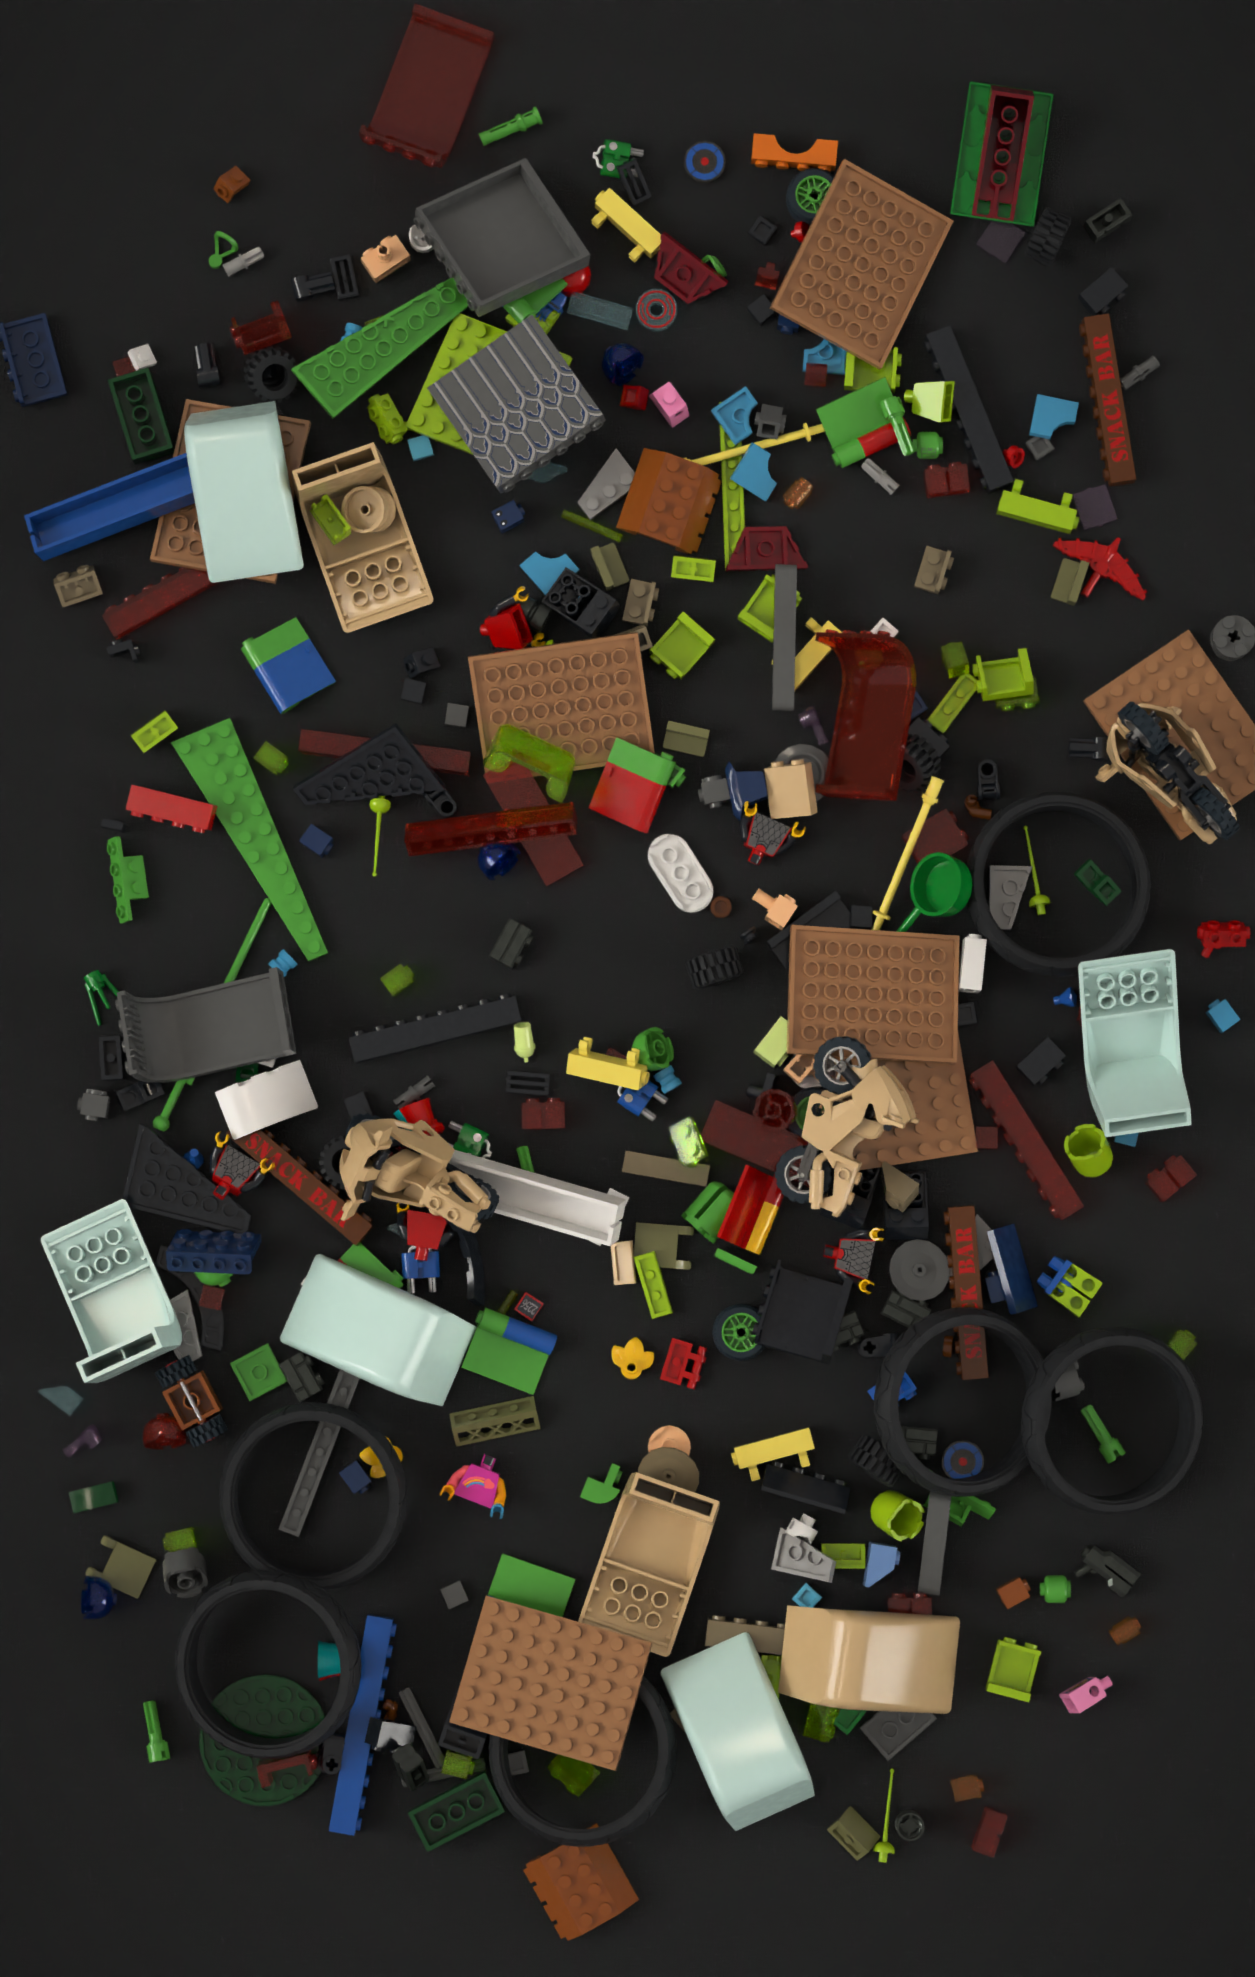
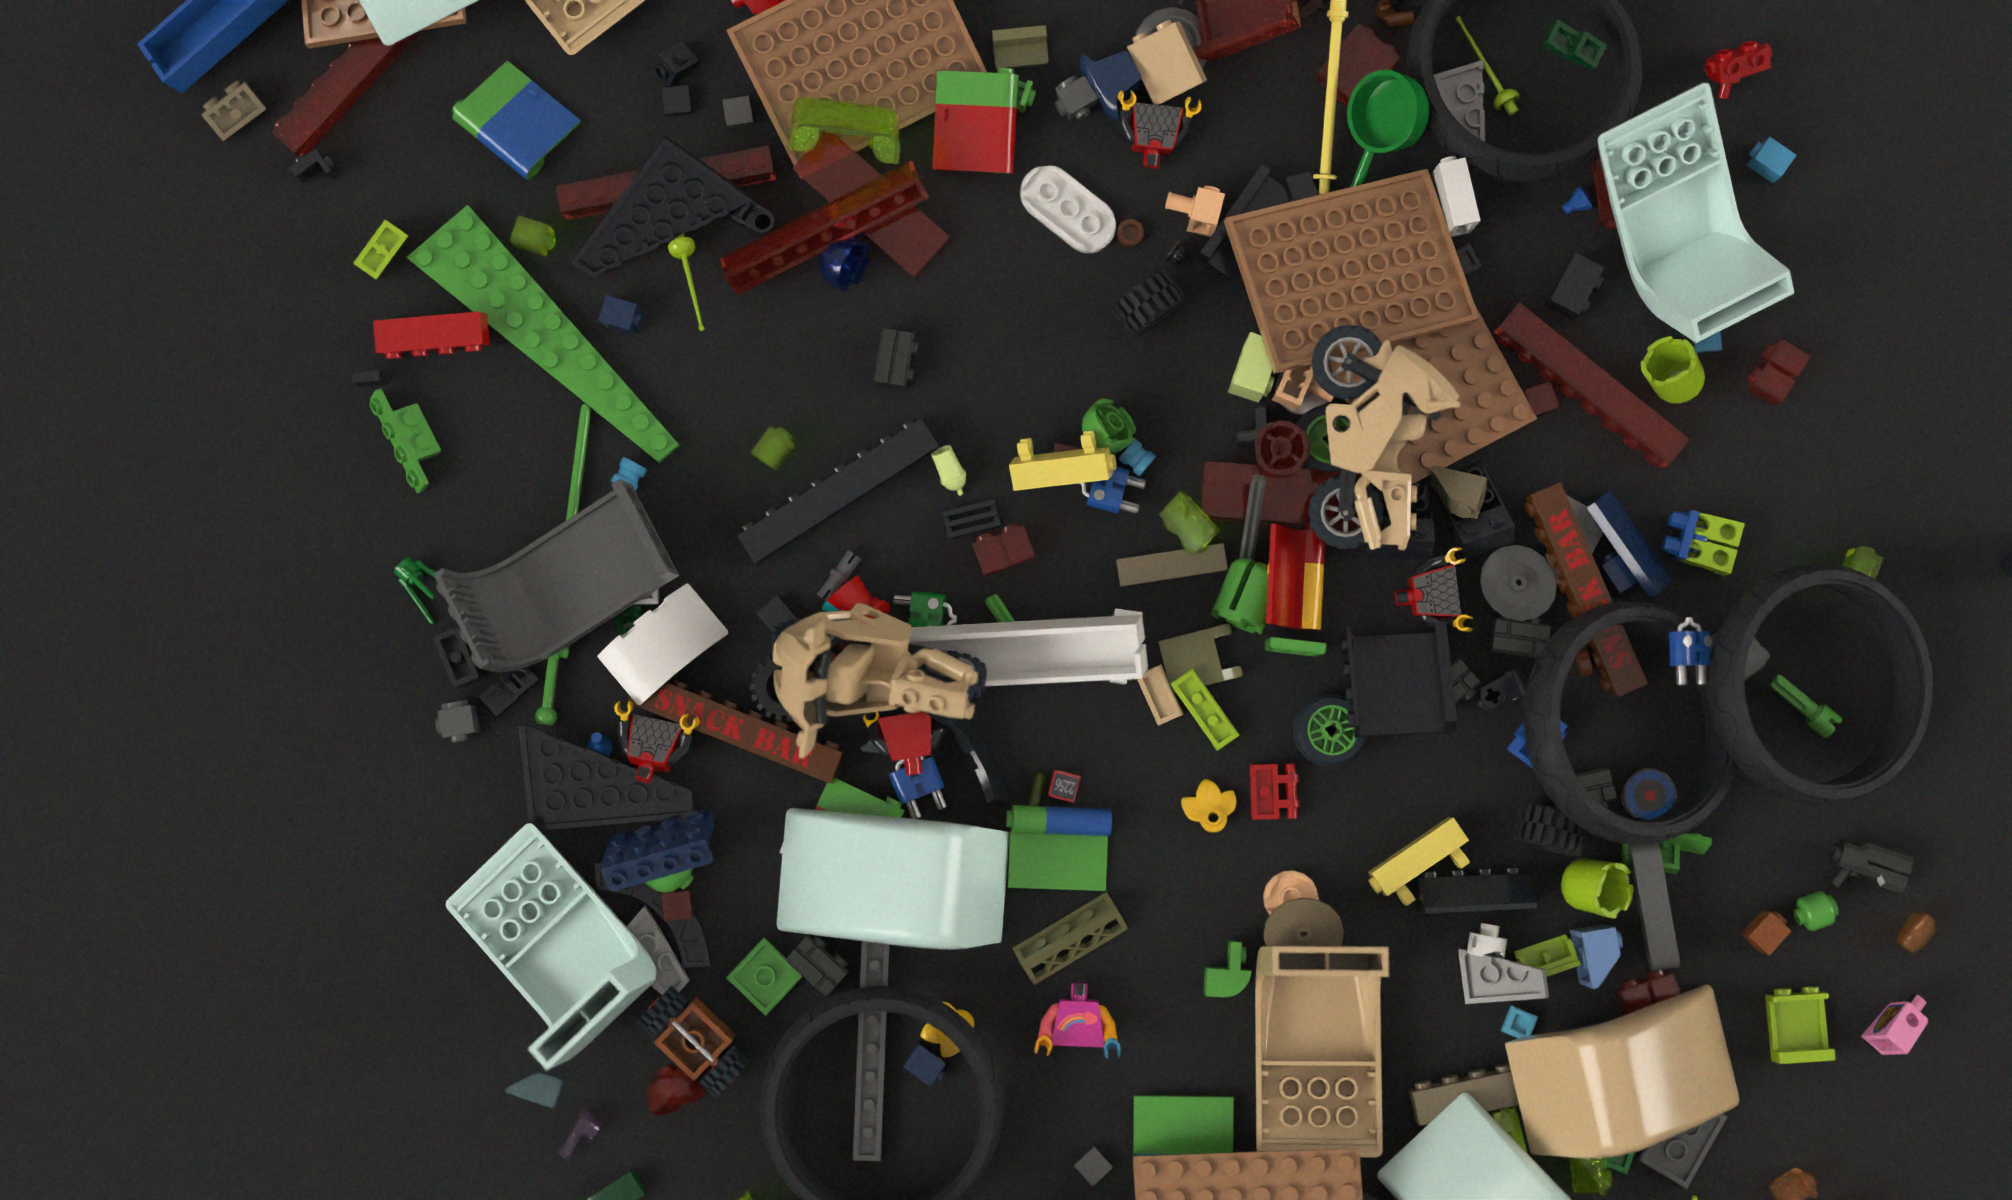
camera: 15 degrees left, 0 degrees up
(735, 1154) = (1253, 516): none -> dark grey axle
(1020, 1361) = (1690, 649): none -> blue piece

